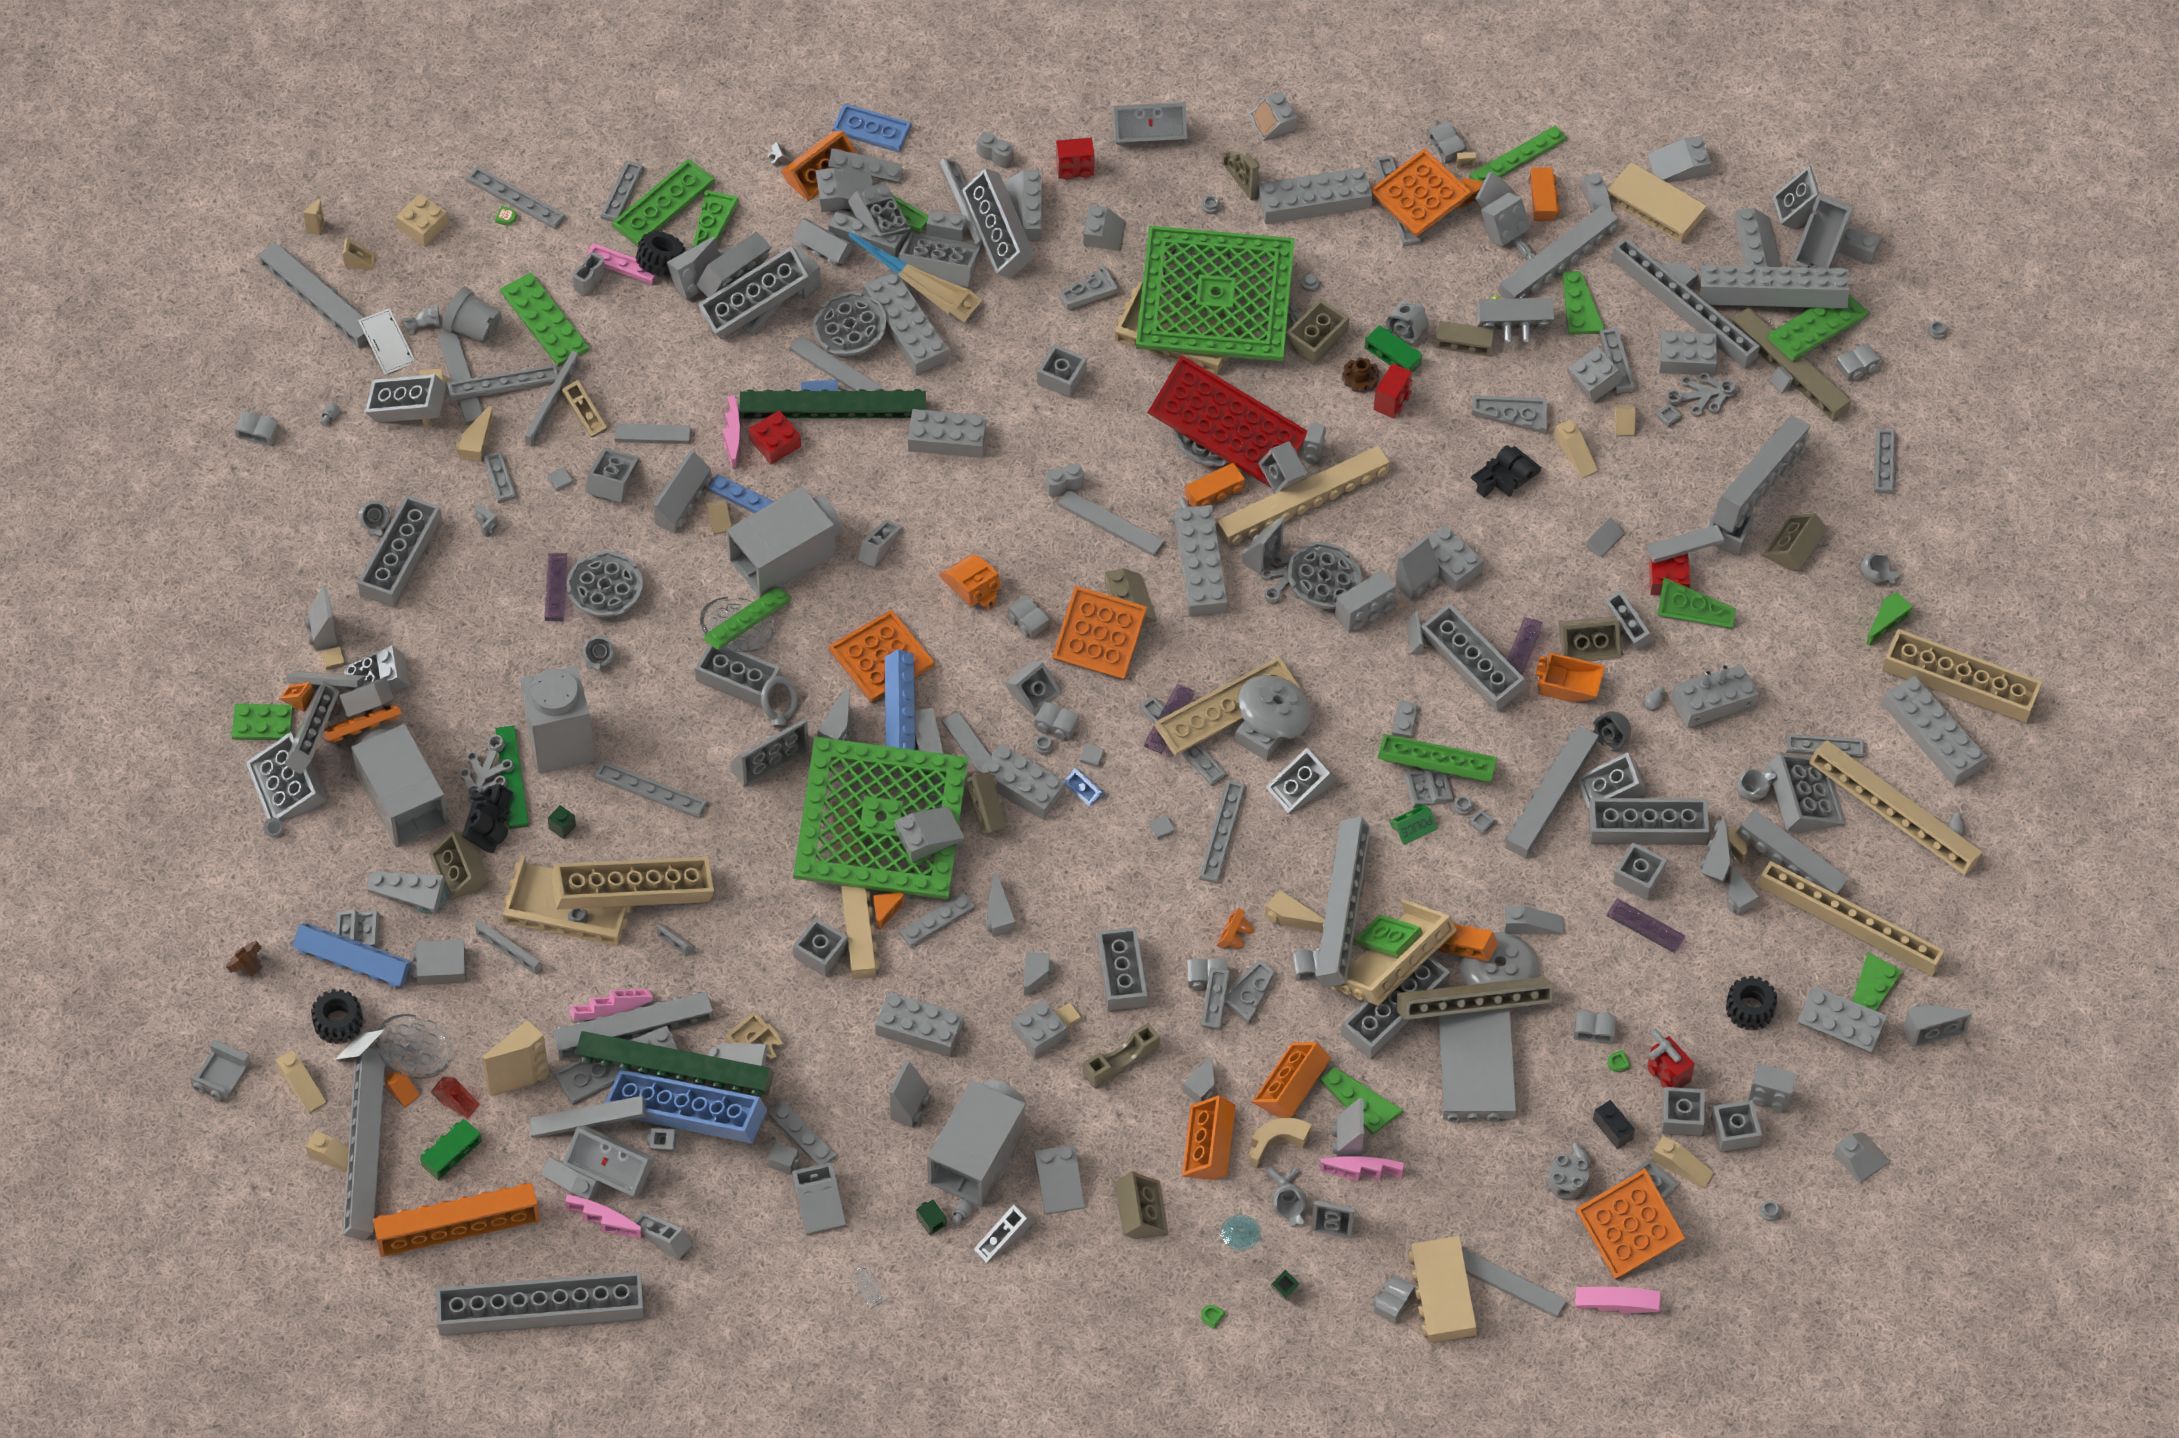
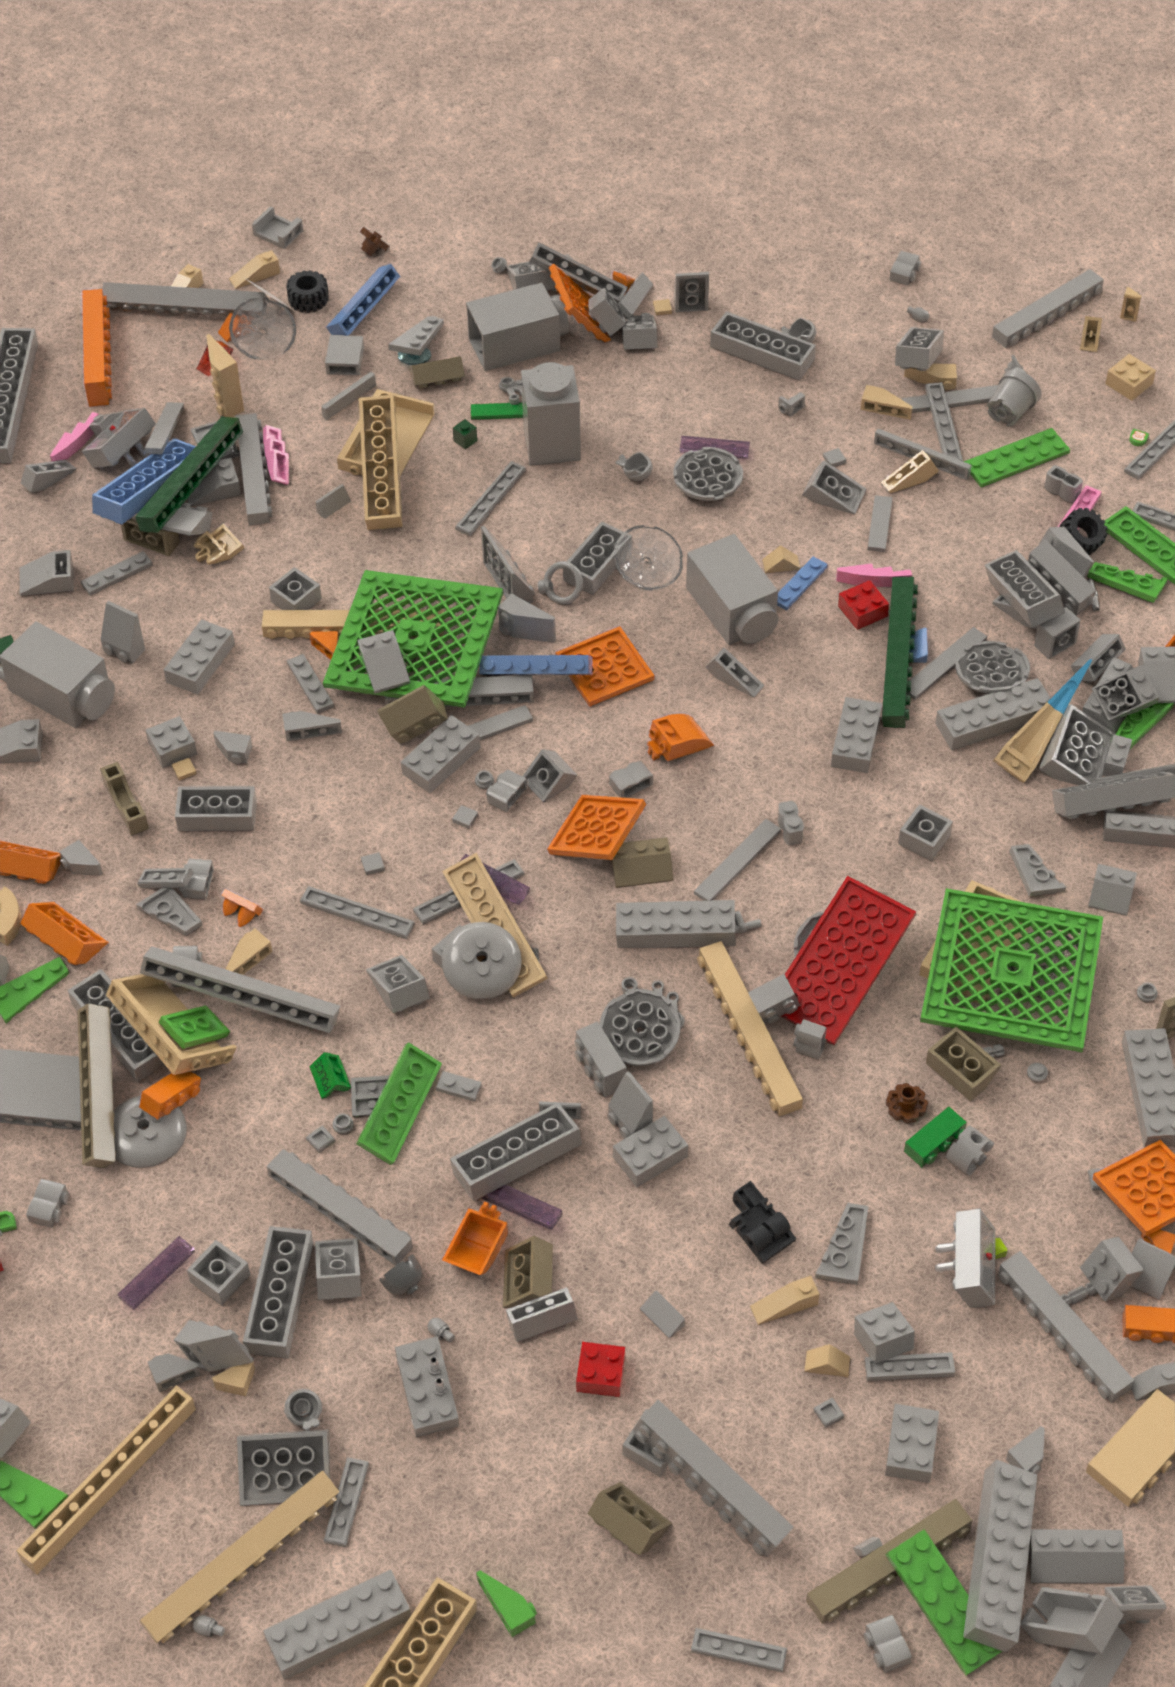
camera: 100 degrees right, 5 degrees down
(261, 721) = (606, 259): bright green plate -> none
(351, 923) = (396, 307): light grey slope -> none
(386, 341) = (993, 348): white sticker -> none
(450, 1149) = (167, 352): green brick -> none
(487, 816) = (475, 384): black plate -> none
(499, 477) = (841, 418): light grey tile -> none
(682, 493) = (803, 530): light grey slope -> none
(747, 618) = (652, 563): bright green plate -> none
(784, 1158) = (94, 555): light grey brick -> none
(1084, 787) = (432, 808): medium blue slope -> none
(1215, 486) = (768, 949): orange brick -> none
(1264, 547) = (681, 978): light grey slope -> none
(1393, 391) = (874, 1122): red brick -> none
(1464, 338) = (950, 1200): dark tan brick -> none
(1531, 921) = (186, 1164): light grey slope -> none
(1580, 308) = (985, 1341): bright green wing -> none
(1684, 302) = (983, 1452): light grey brick -> none
(1685, 543) = (625, 1379): light grey tile -> none
(1687, 604) = (553, 1383): bright green wing -> none
(1703, 393) = (856, 1456): light grey plant -> none
(1746, 1015) = (35, 1371): black tyre -> none
(1789, 852) = (198, 1427): light grey brick -> none
(1876, 568) = (568, 1596): light grey hat -> none

